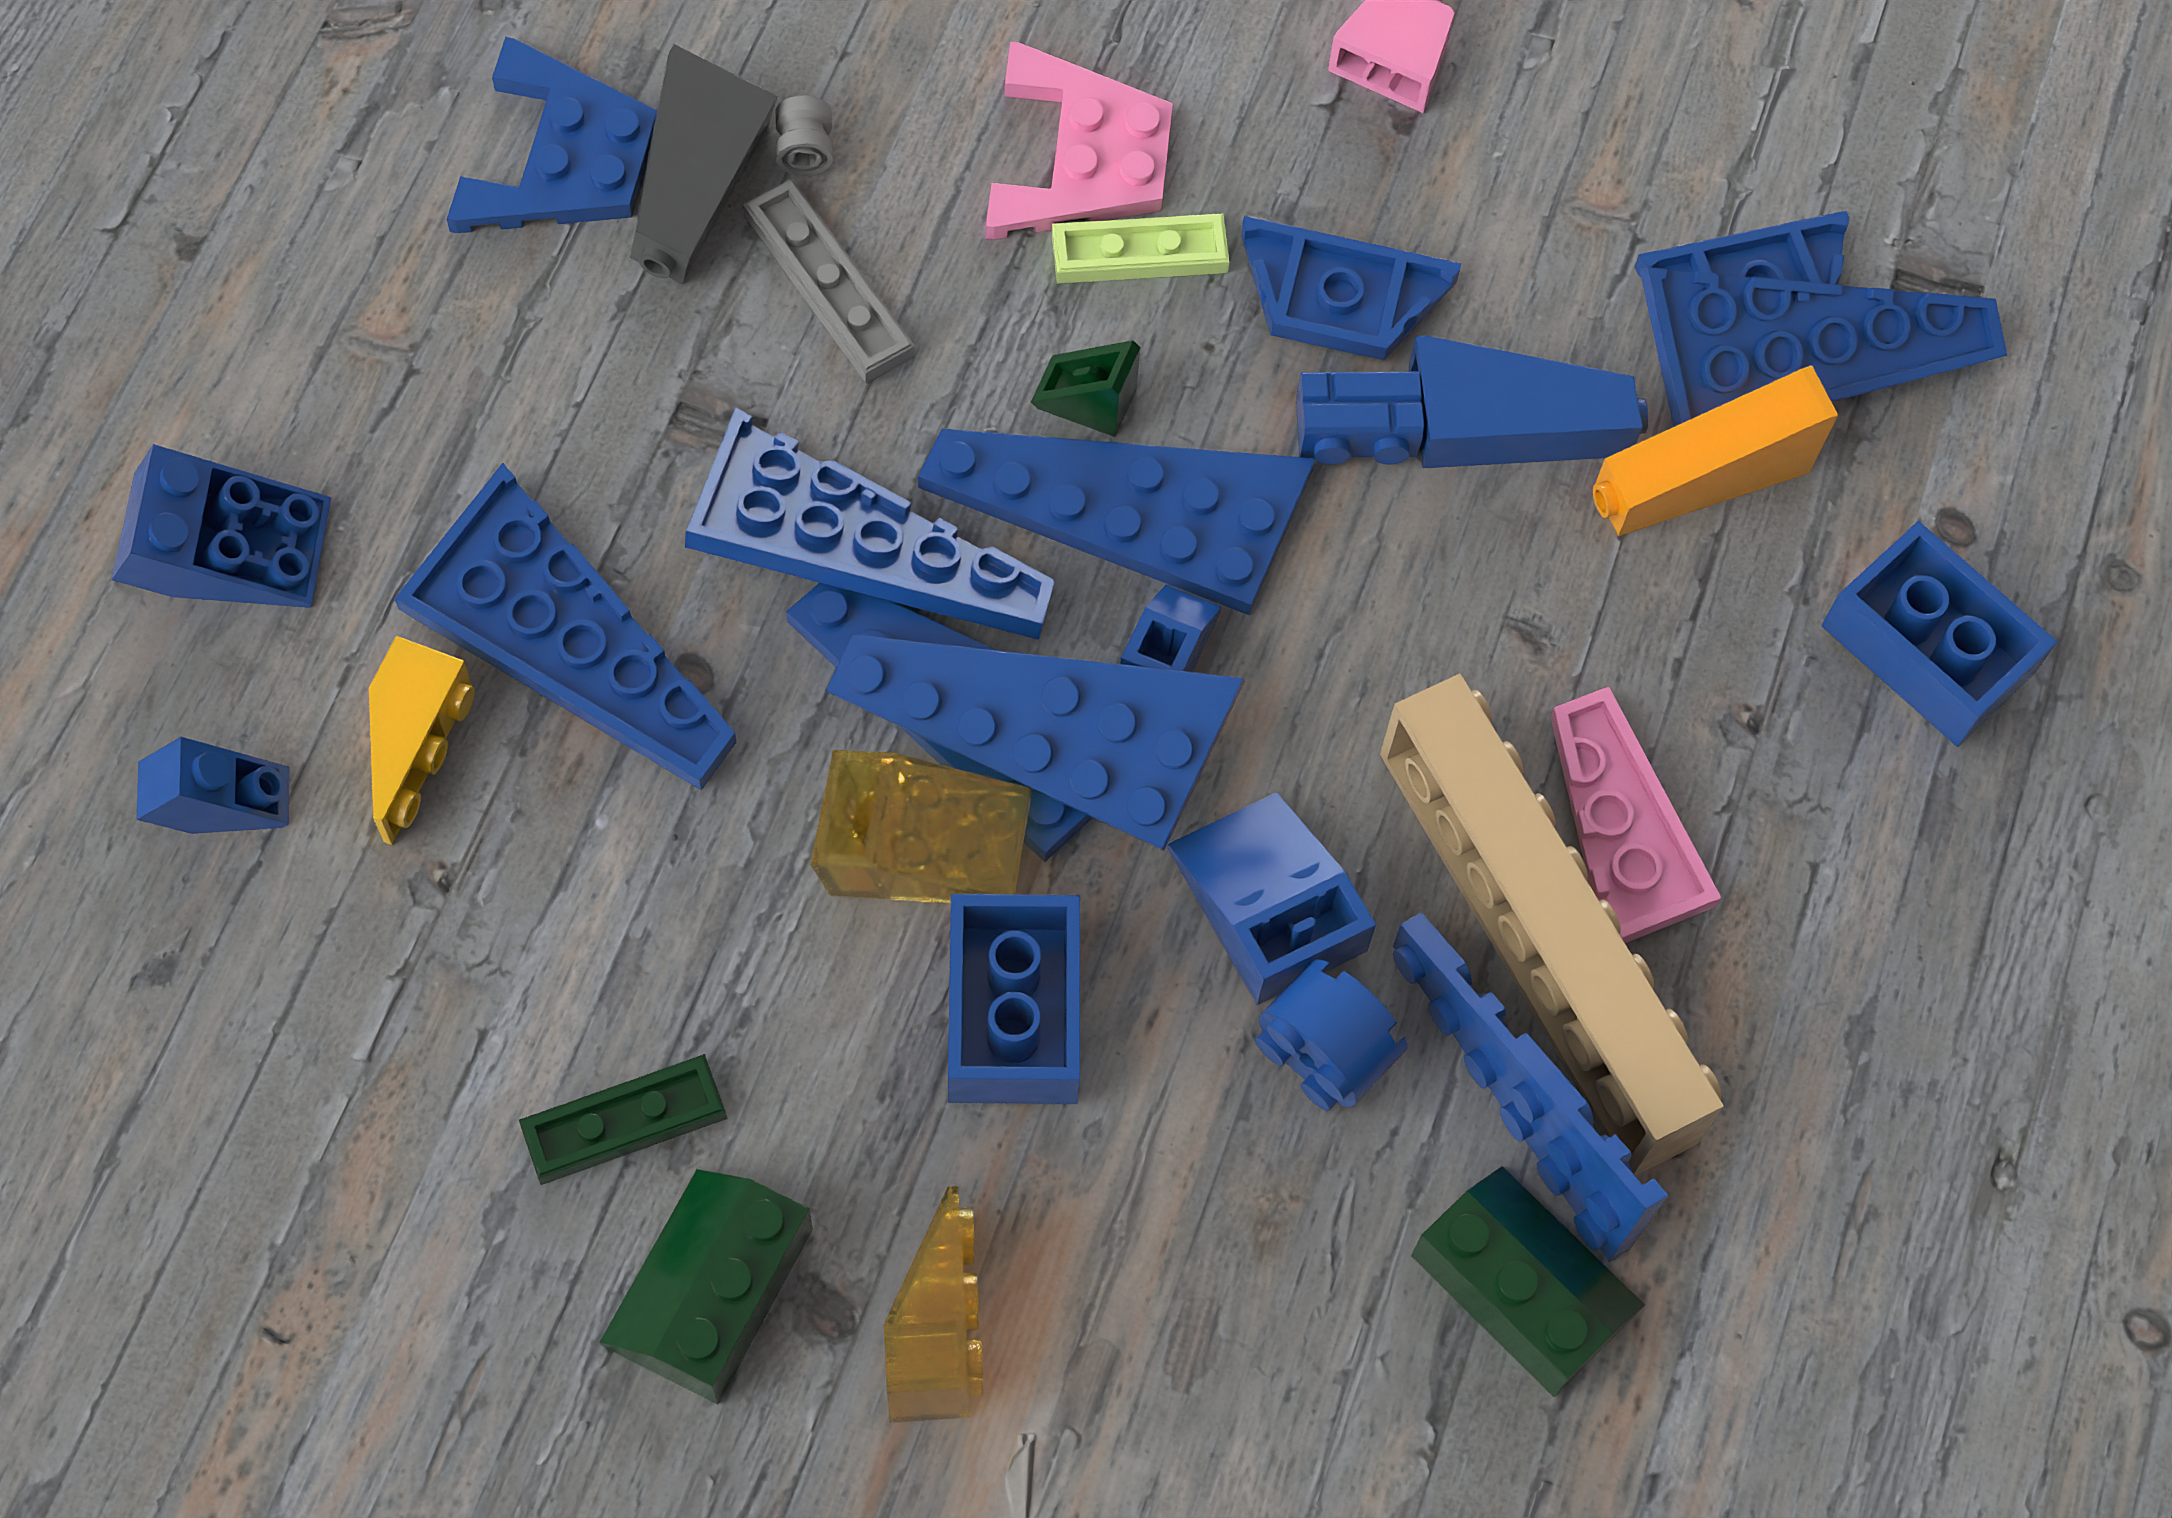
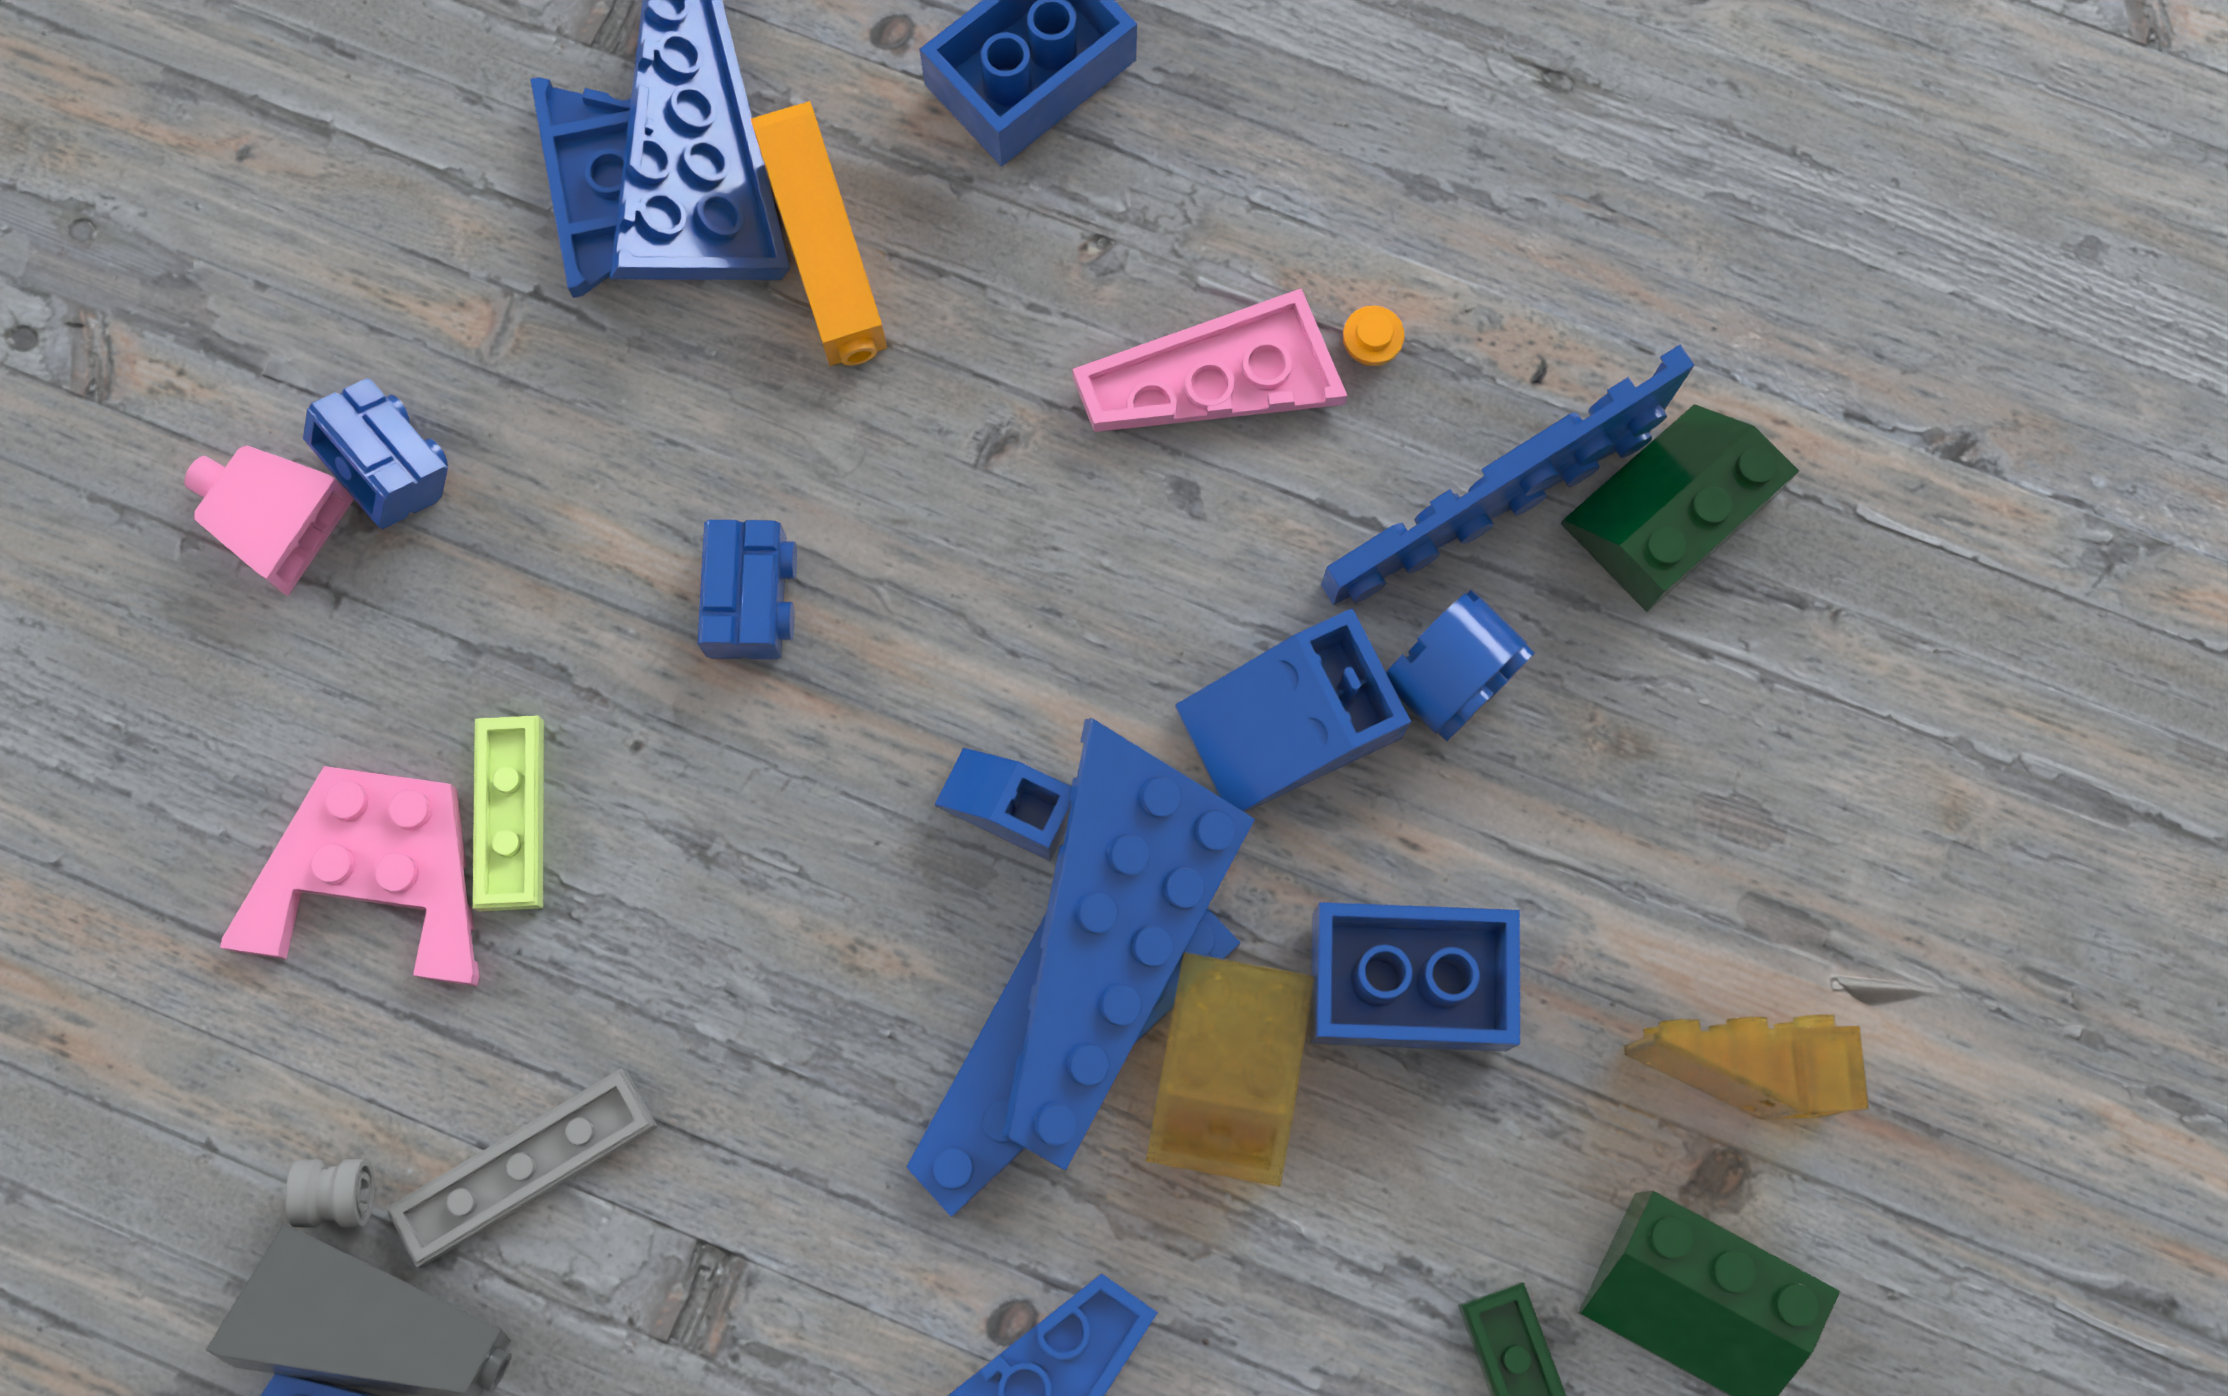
camera: 85 degrees left, 10 degrees up
(842, 530) = (854, 1162): wing -> none
(1091, 385) = (687, 875): dark green slope -> none
(1159, 510) = (838, 809): blue wing -> none
(1341, 288) = (581, 600): blue wing -> none
(1460, 115) = (376, 452): none -> brick
(1519, 407) = (743, 428): blue slope -> none
(1549, 924) = (1338, 446): tan brick -> none
(1682, 975) = (1373, 335): none -> light orange plate

